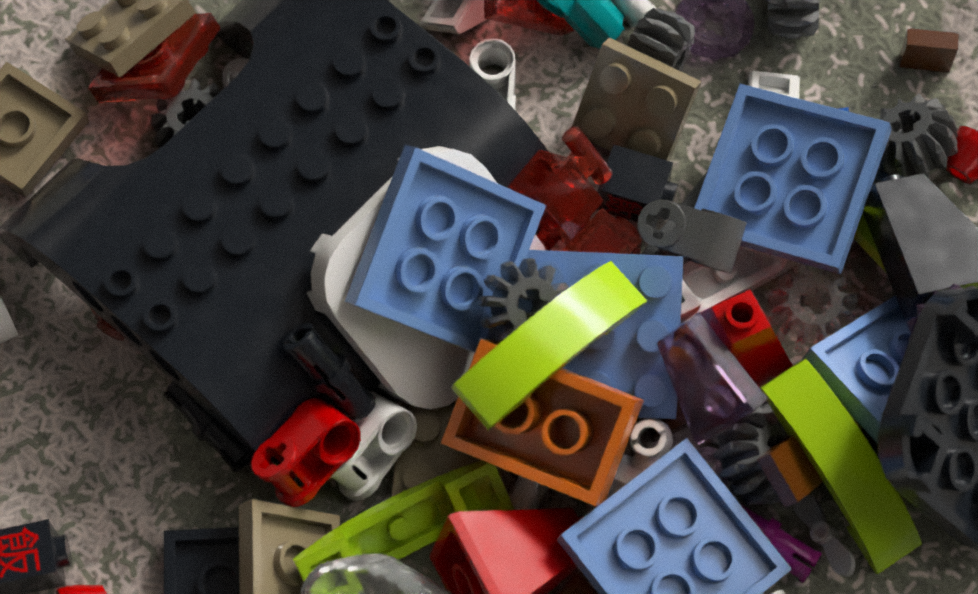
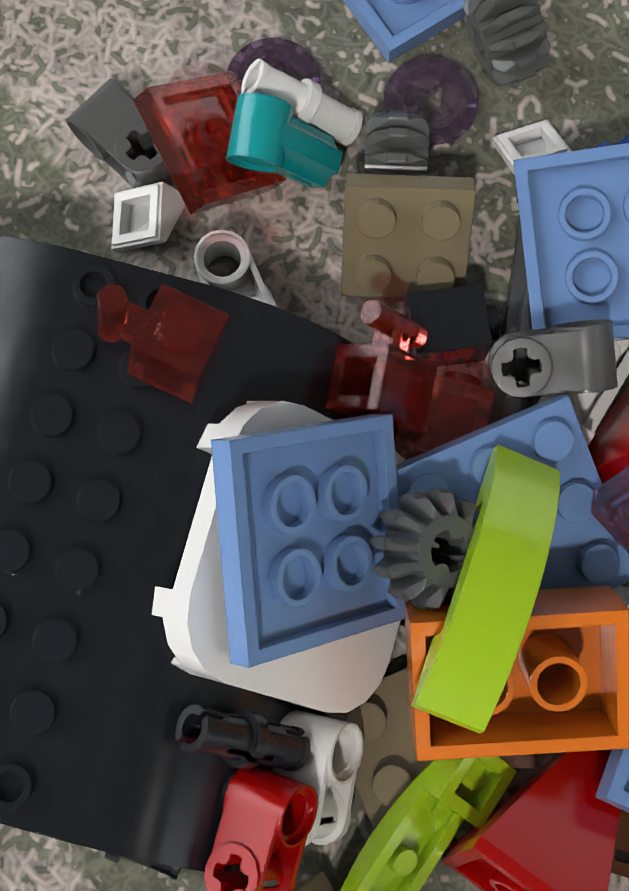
camera: 30 degrees left, 10 degrees up
(413, 80) = (169, 342): none -> clear red brick

